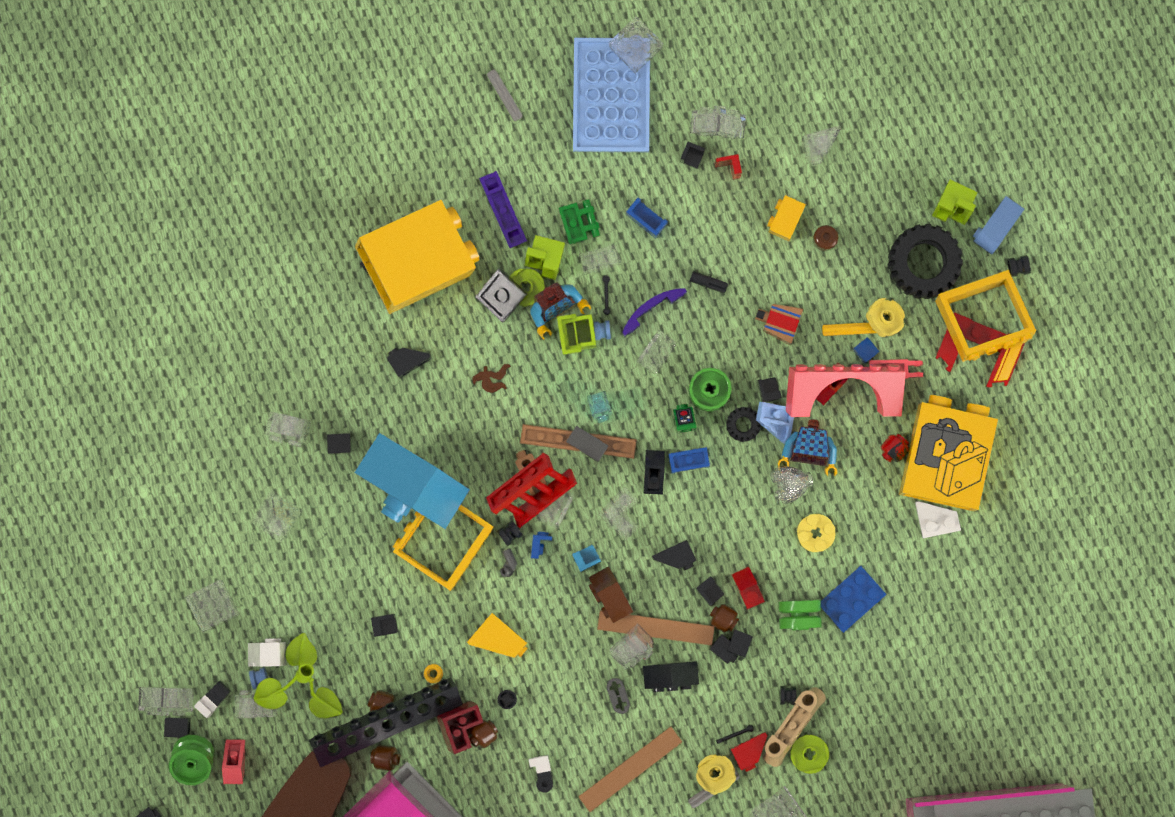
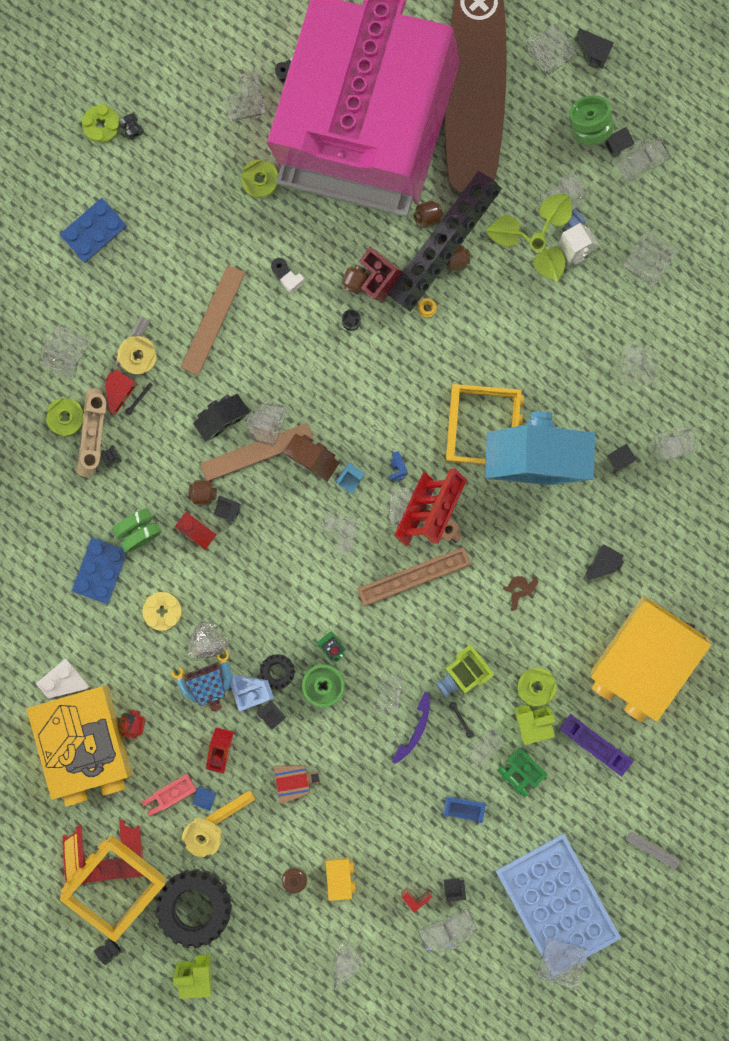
camera: 150 degrees right, 0 degrees up
(212, 699) = (603, 181): leg -> none
(233, 762) = (554, 140): coral slope -> none
(384, 625) = (493, 325): black panel -> none
(498, 638) = (387, 367): yellow slope -> none
(501, 295) = (554, 667): tile -> none
(506, 536) = (429, 463): black wheel -> none
(510, 564) = (413, 436): dark grey arm -> none
(553, 302) = (504, 687): torso -> none
(587, 444) = (404, 577): dark grey slope -> none
(599, 407) = (412, 615): clear light blue brick -> none
(622, 693) = (260, 373): dark grey beam -> none
(654, 472) = (332, 586): black slope -> none
(677, 556) = (272, 523): black slope -> none
(689, 460) = (307, 612): blue panel -> none
(708, 282) = (377, 781): black axle -> none
(720, 649) = (186, 465): black brick -> none
(739, 644) = (176, 476): black panel -> none
(807, 383) = (238, 738): coral arch -> none
(998, 225) = (145, 978): medium blue door -> none

